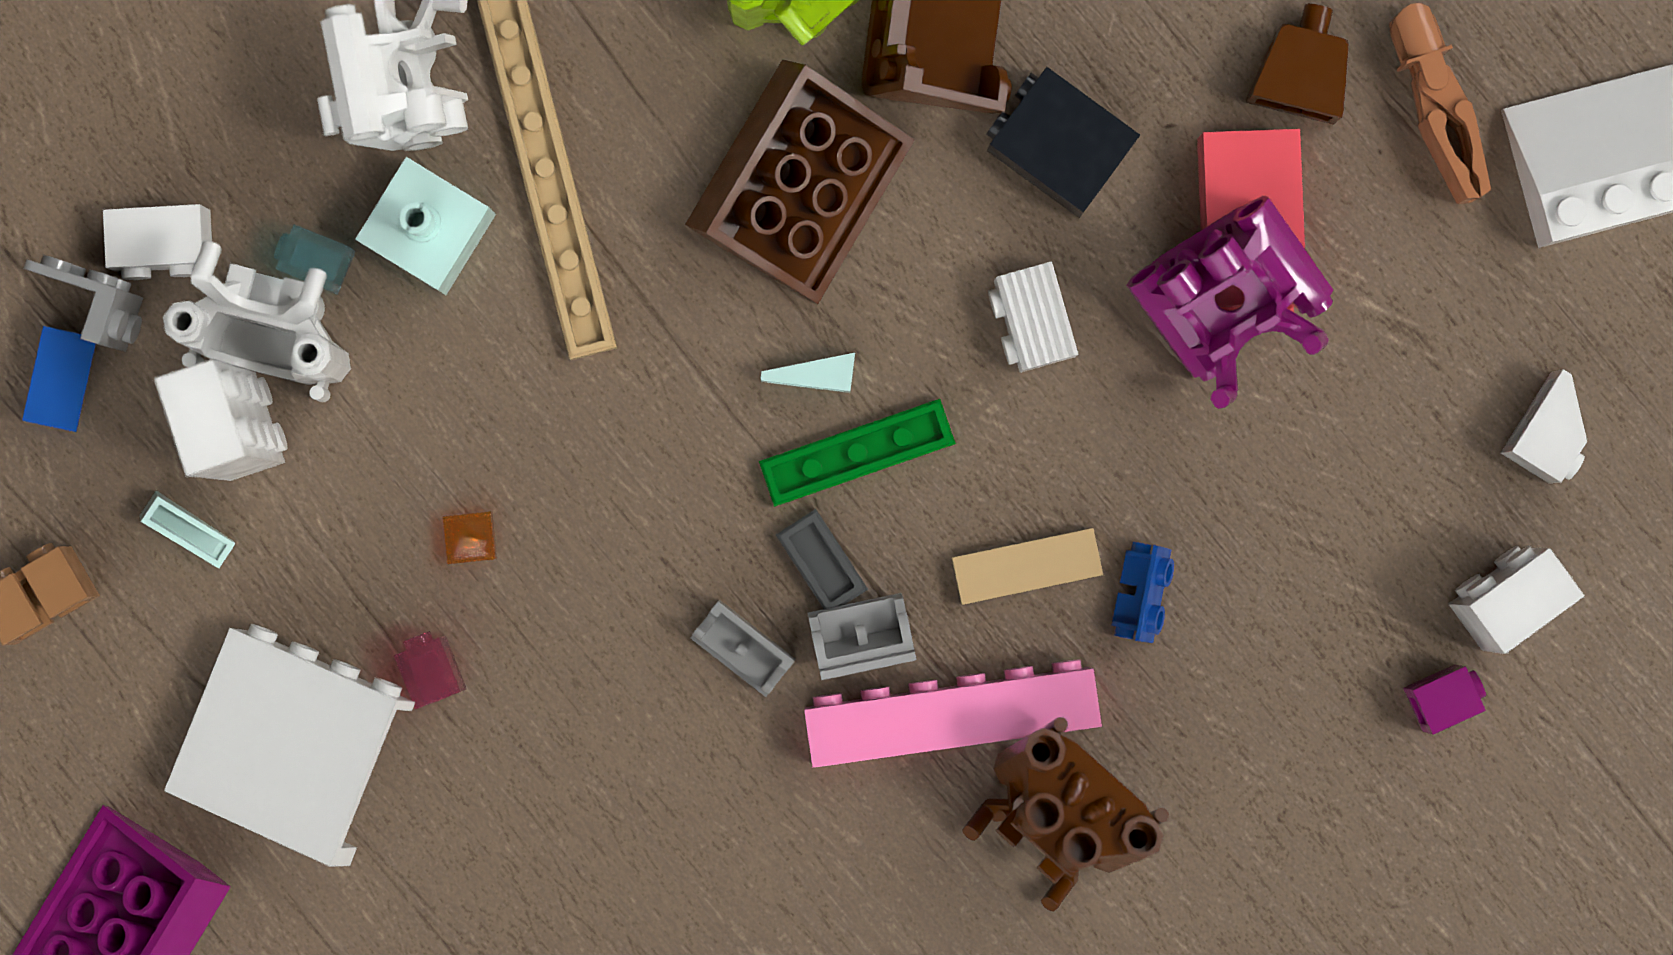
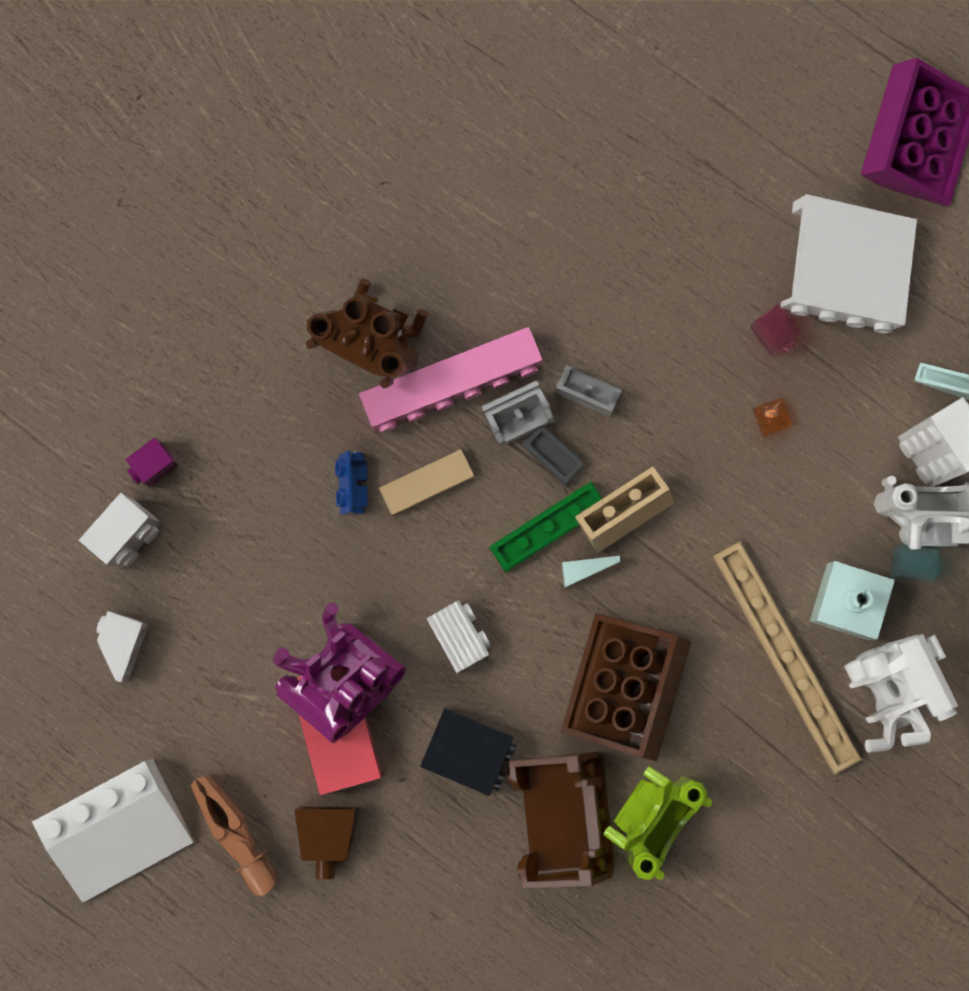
camera: 170 degrees right, 5 degrees down
(735, 447) = (625, 509): none -> tan brick

